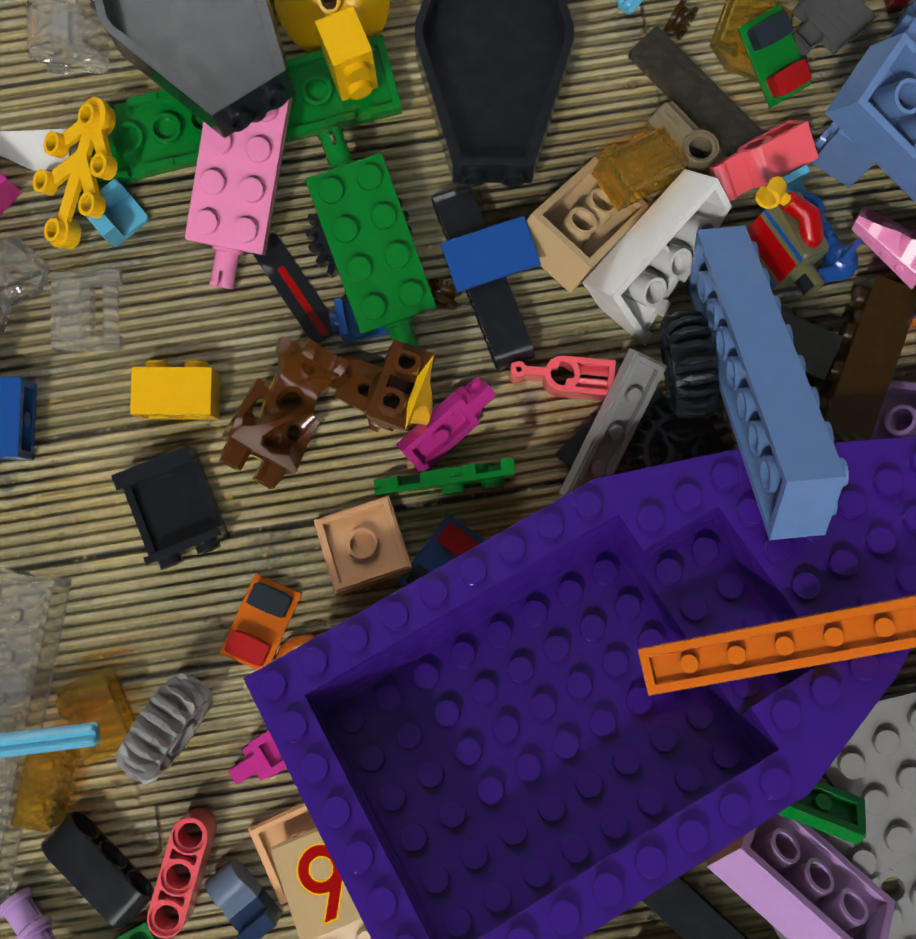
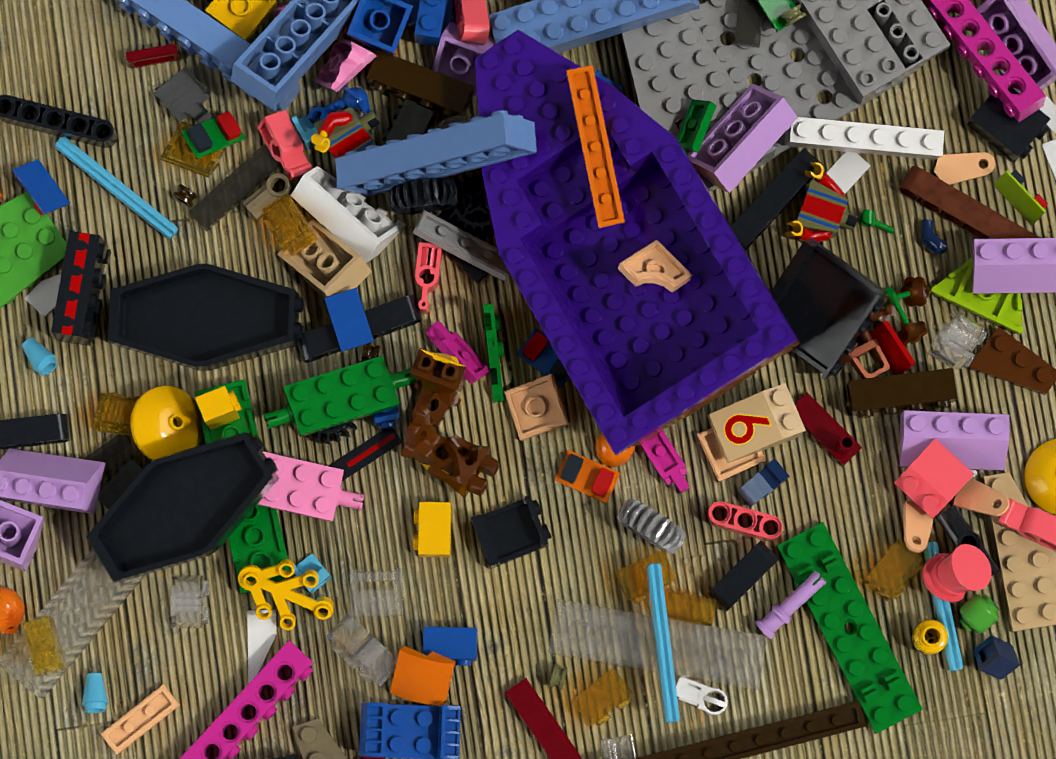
camera: 85 degrees left, 5 degrees down
(572, 749) = (655, 266): none -> light nougat tile

